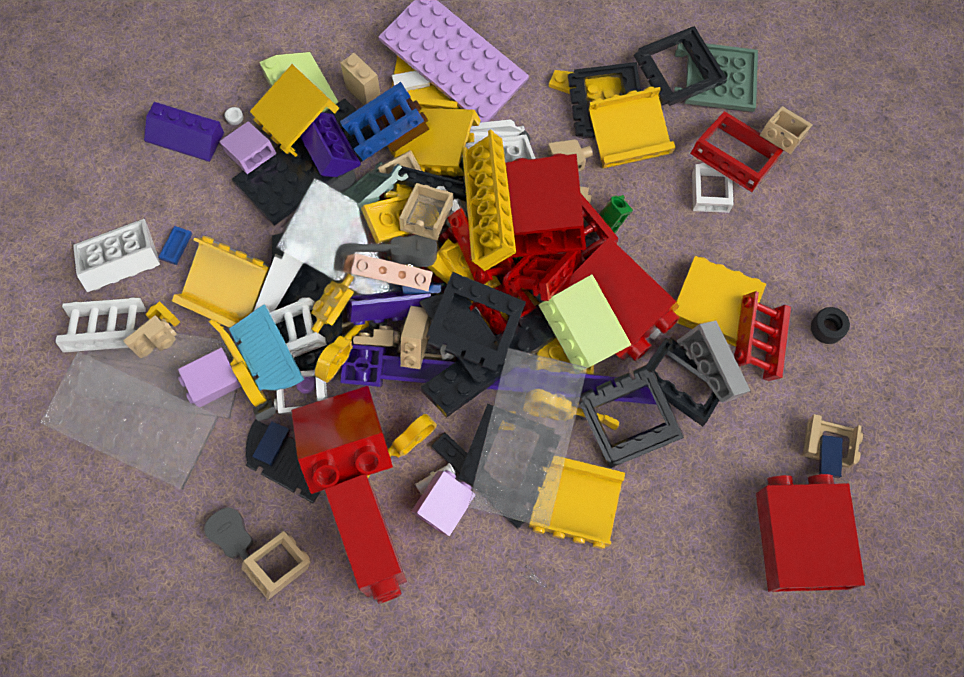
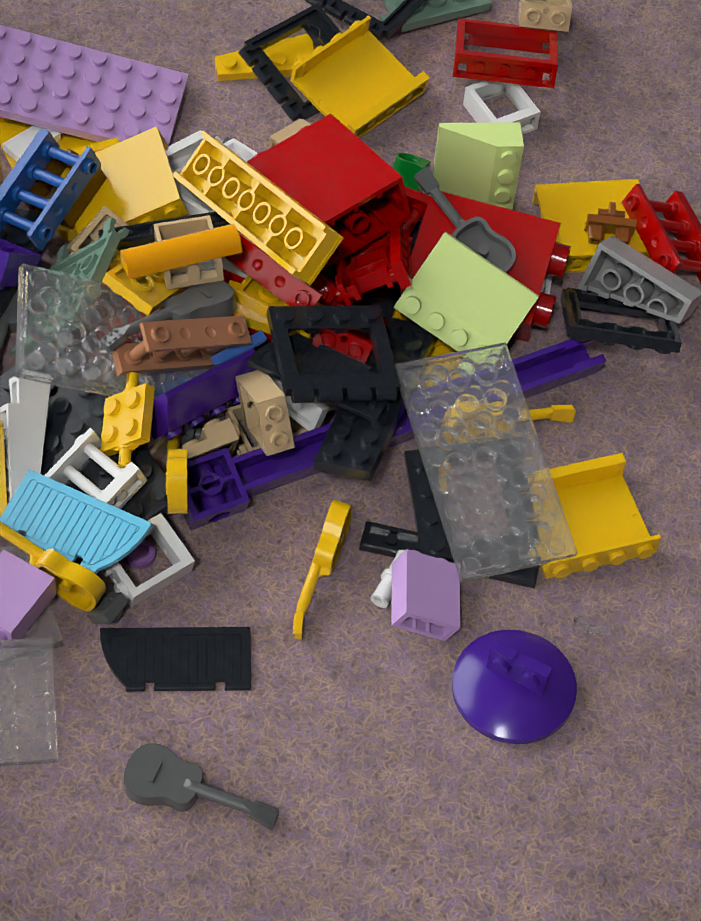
camera: 35 degrees left, 15 degrees down
(260, 578) = (268, 799): tan window -> none
(271, 443) = (145, 643): dark blue tile -> none
(339, 439) = (252, 568): red brick -> none
(366, 539) = (367, 667): red brick -> none
(413, 213) = (181, 251): none -> light orange brick
(460, 589) = (514, 686): none -> dark purple bracket
(614, 284) = (474, 232): none -> dark grey piece
(642, 442) = (619, 408): black hinge -> none
(658, 230) = (479, 161): none -> yellowish green slope
(727, 317) = (609, 222): none -> dark orange hips

